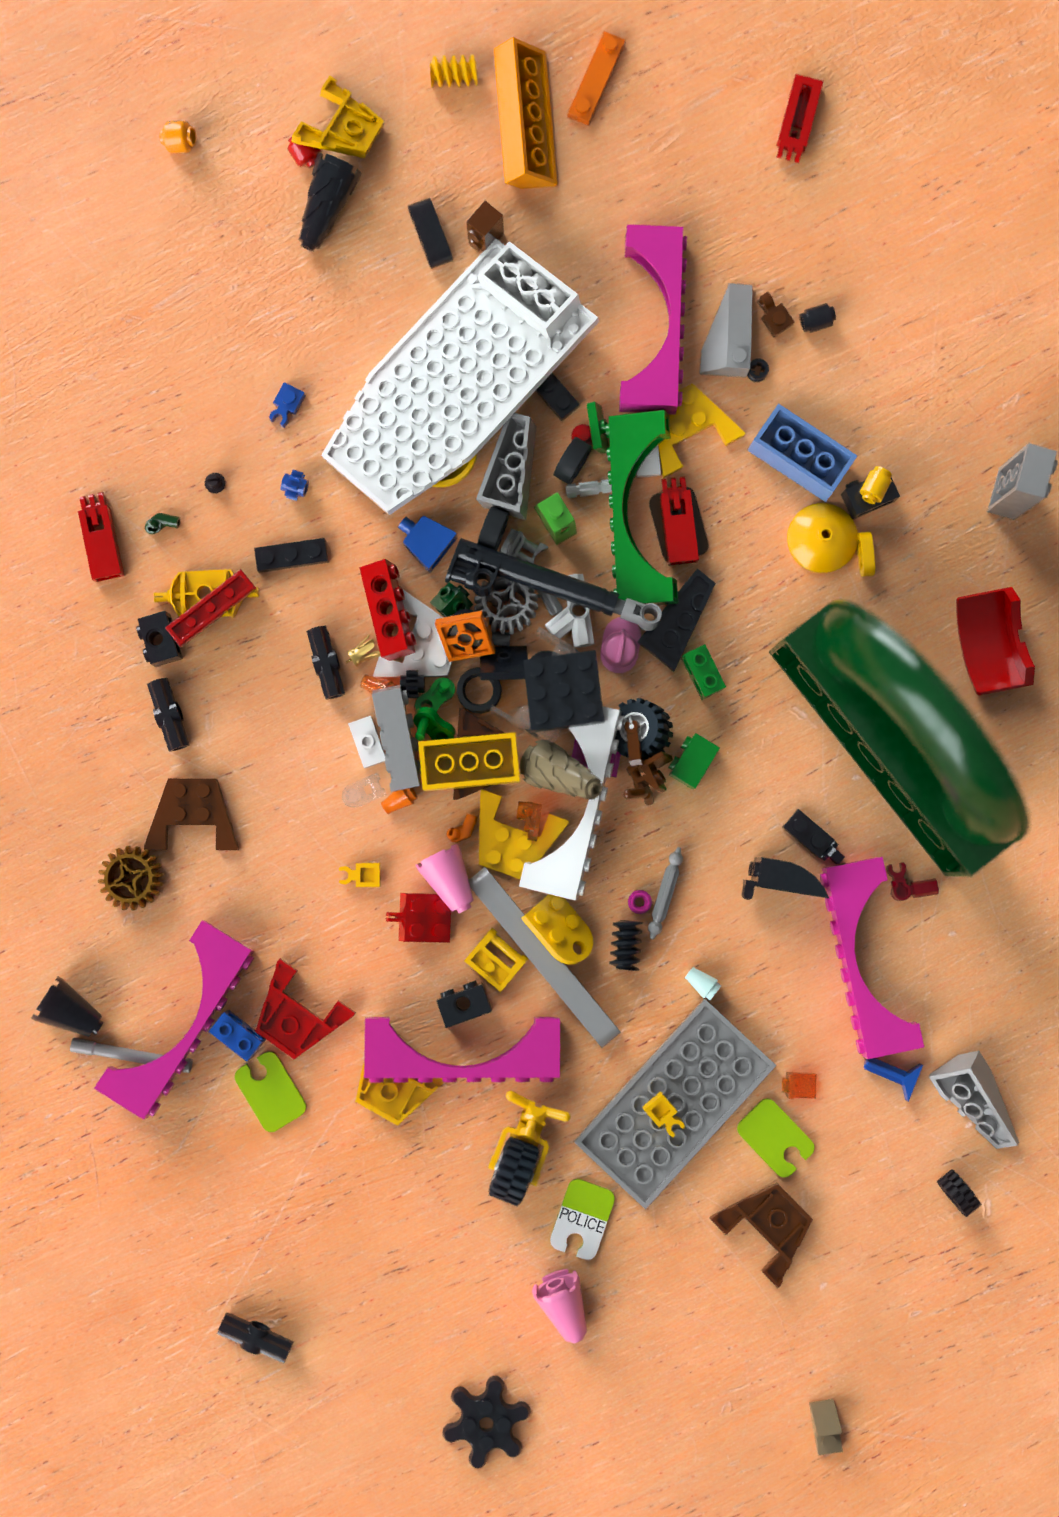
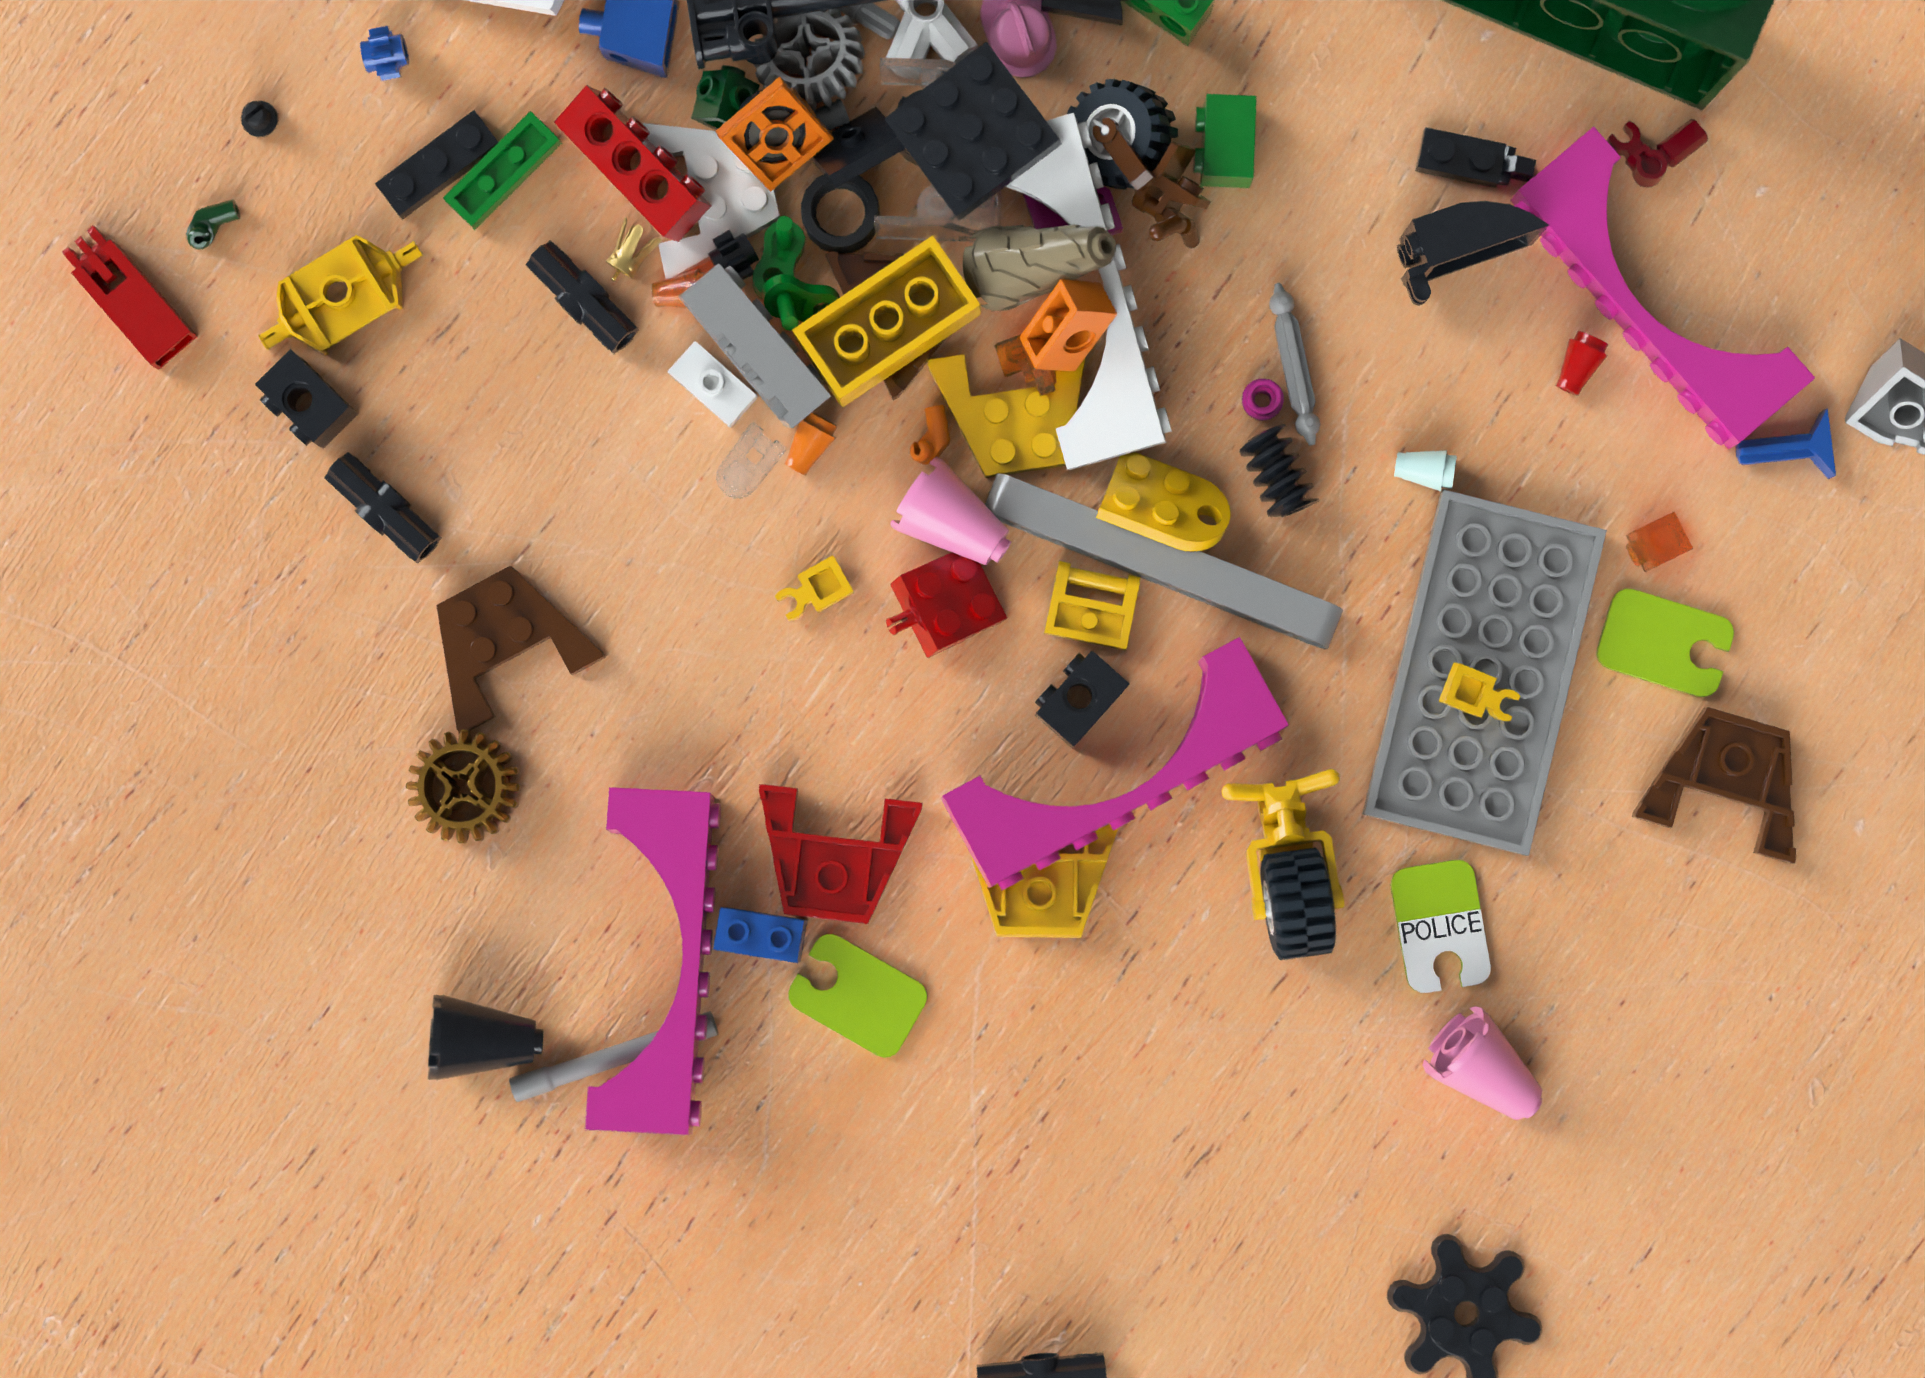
camera: 20 degrees left, 0 degrees up
(210, 608) = (359, 306): red tile -> none
(321, 576) = (502, 170): none -> green plate
(558, 815) = (1068, 325): none -> orange brick
(811, 972) = (1581, 361): none -> red cone

